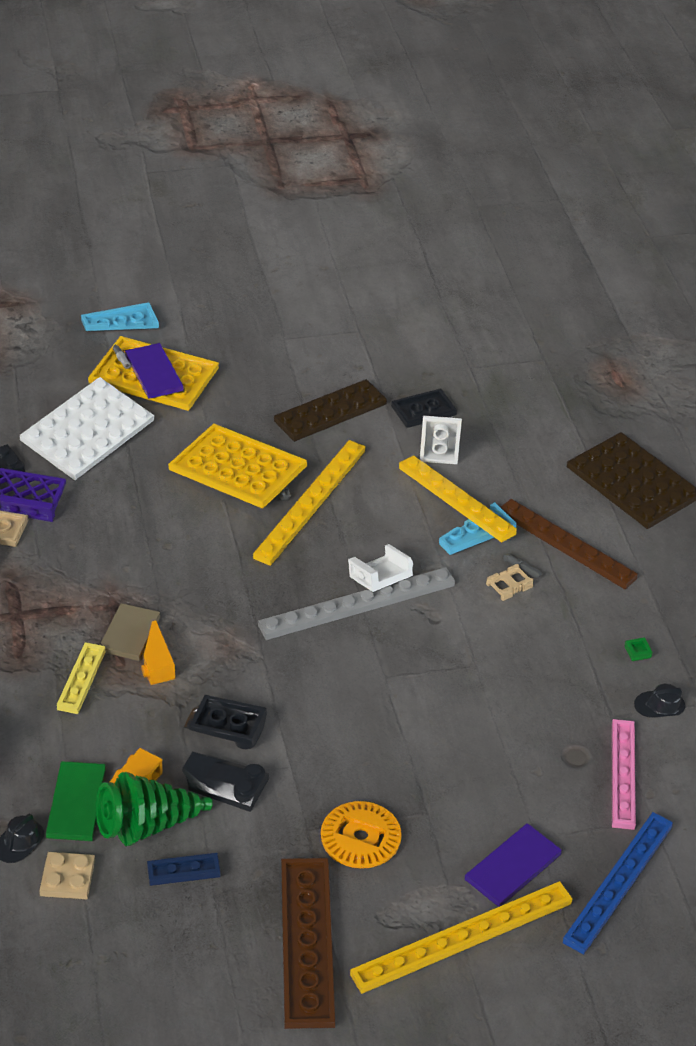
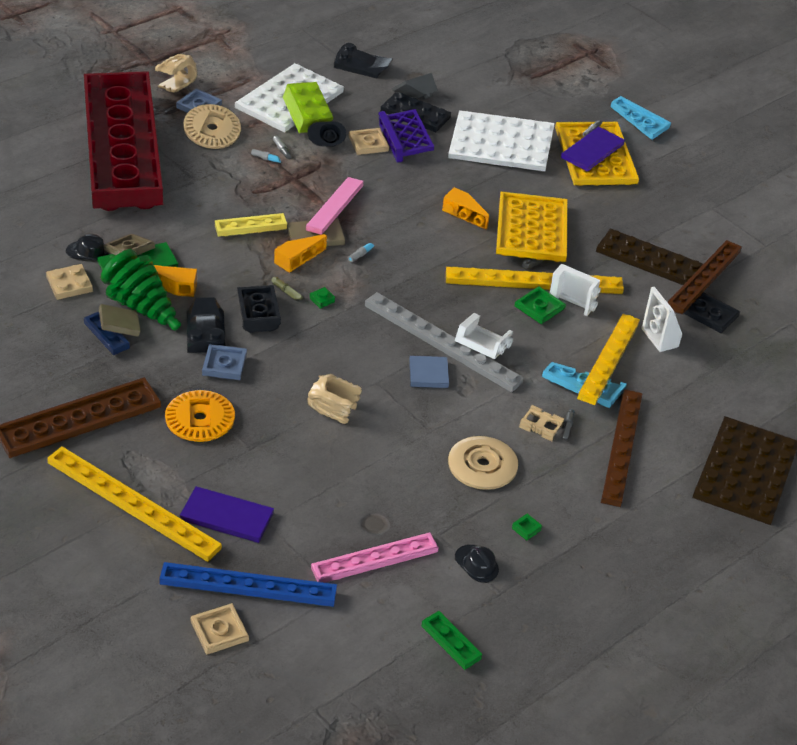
camera: 60 degrees right, 0 degrees up
(50, 796) = (130, 241): none -> dark tan tile
(100, 596) = (334, 206): none -> bright pink tile
(175, 499) = (465, 207): none -> light orange slope
(175, 848) = (119, 320): none -> dark tan tile
(185, 608) = (360, 252): none -> light grey piece
(206, 689) = (286, 288): none -> olive piece
(236, 667) = (322, 297): none -> green plate
(292, 783) = (224, 362): none -> sand blue plate
(352, 512) = (540, 305): none -> green plate
(356, 474) = (575, 287): none -> white panel
(386, 385) = (704, 277): none -> reddish brown plate
(396, 631) = (429, 371): none -> sand blue tile
(408, 718) = (334, 397): none -> tan piece
(557, 653) = (499, 471): none -> tan piece
(661, 927) = (219, 628): none -> tan tile

